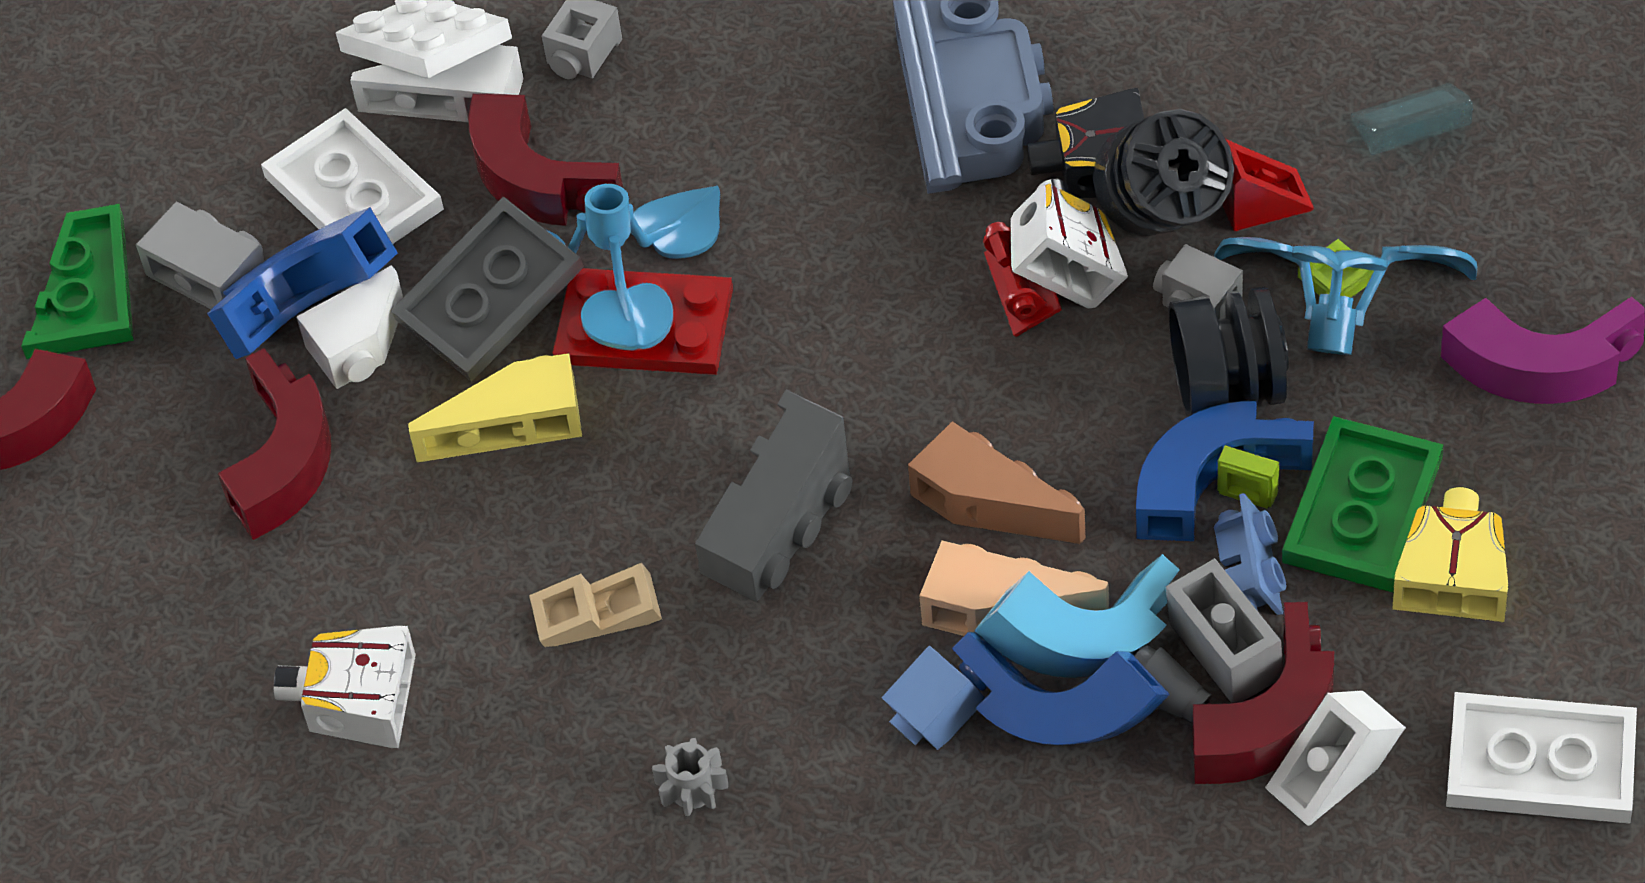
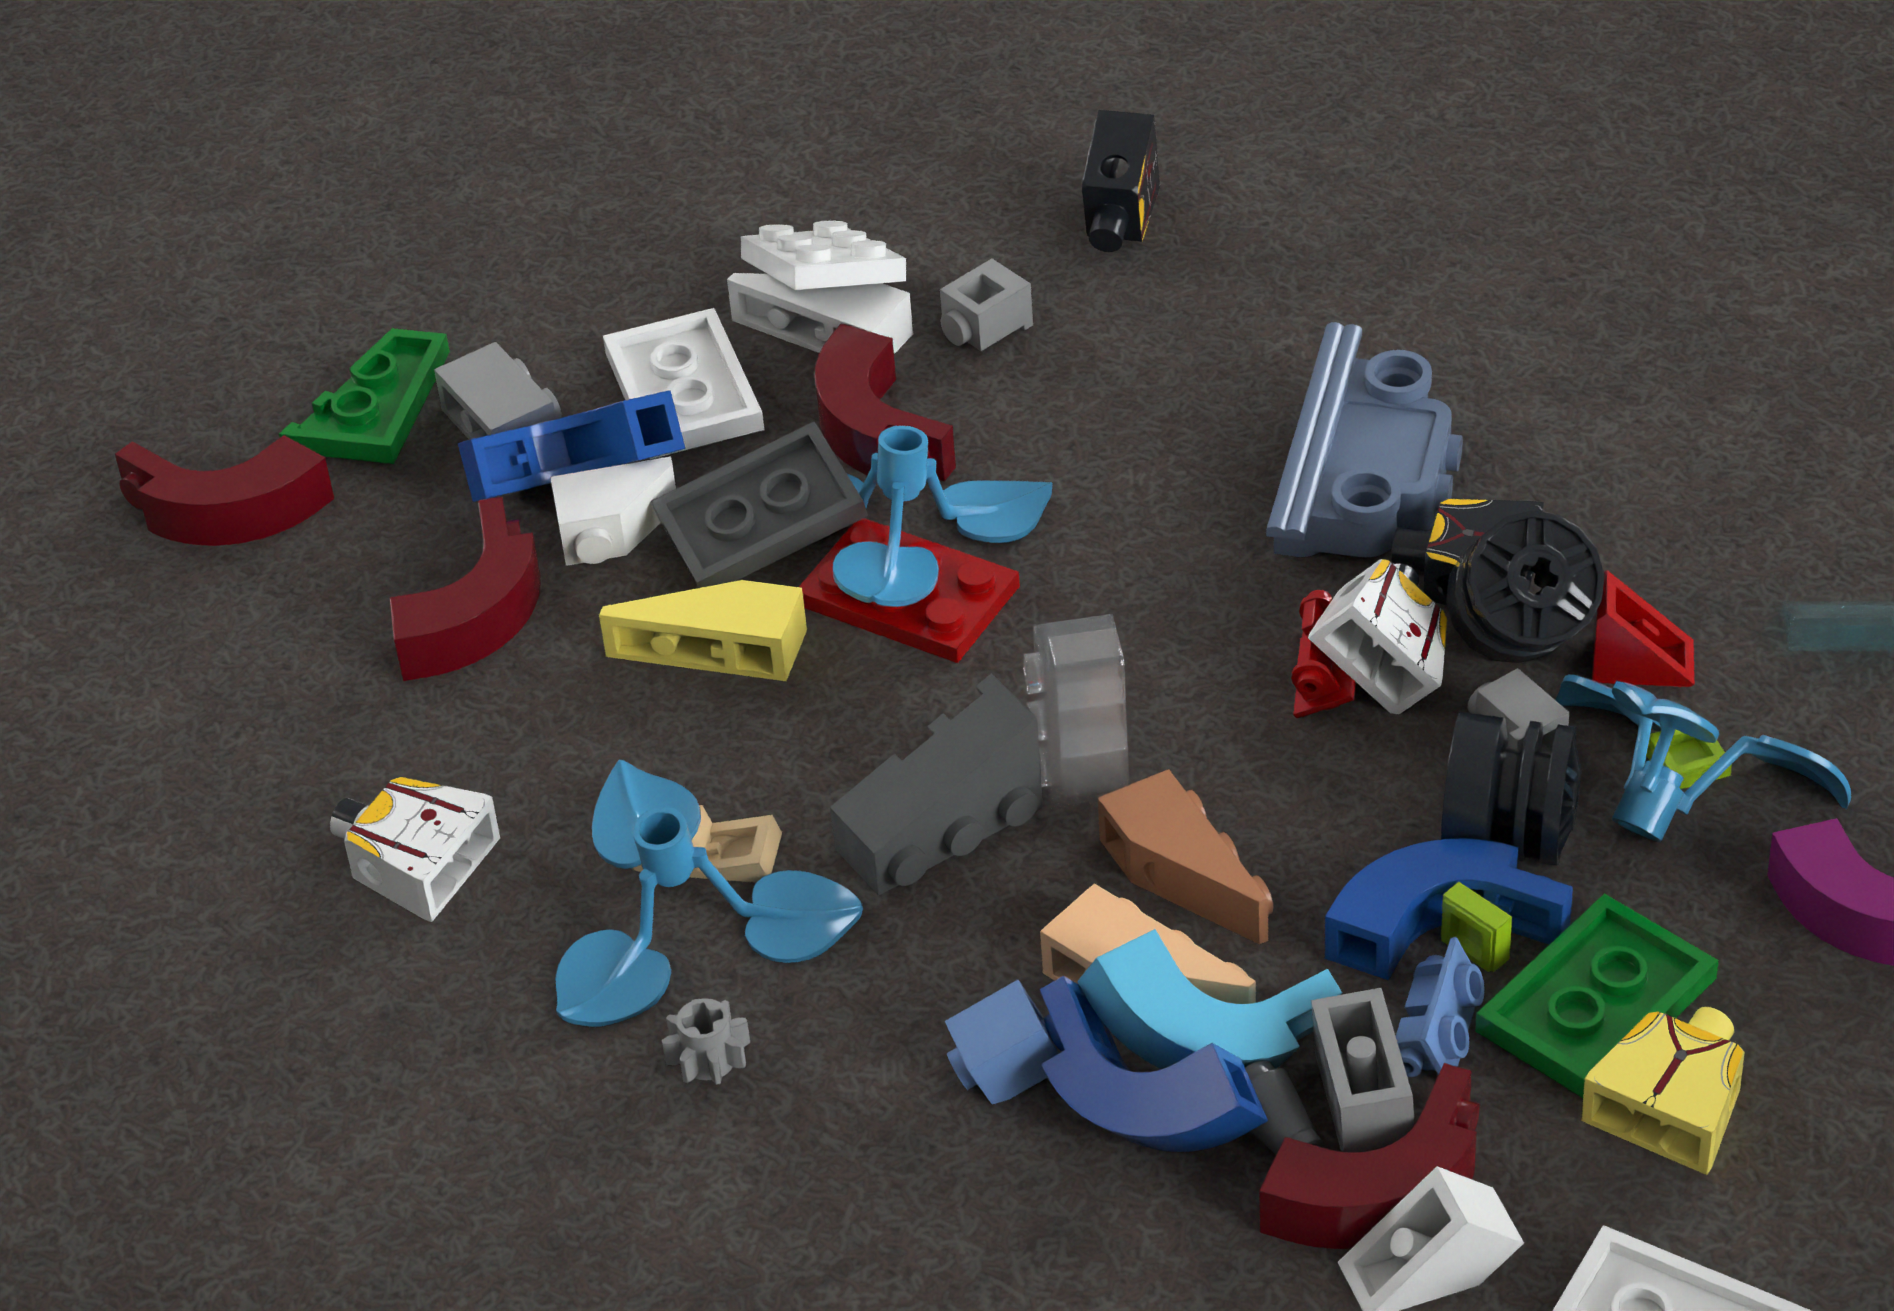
camera: 20 degrees right, 10 degrees down
(543, 599) = (653, 824): none -> dark azure plant
(870, 387) = (1079, 708): none -> clear brick

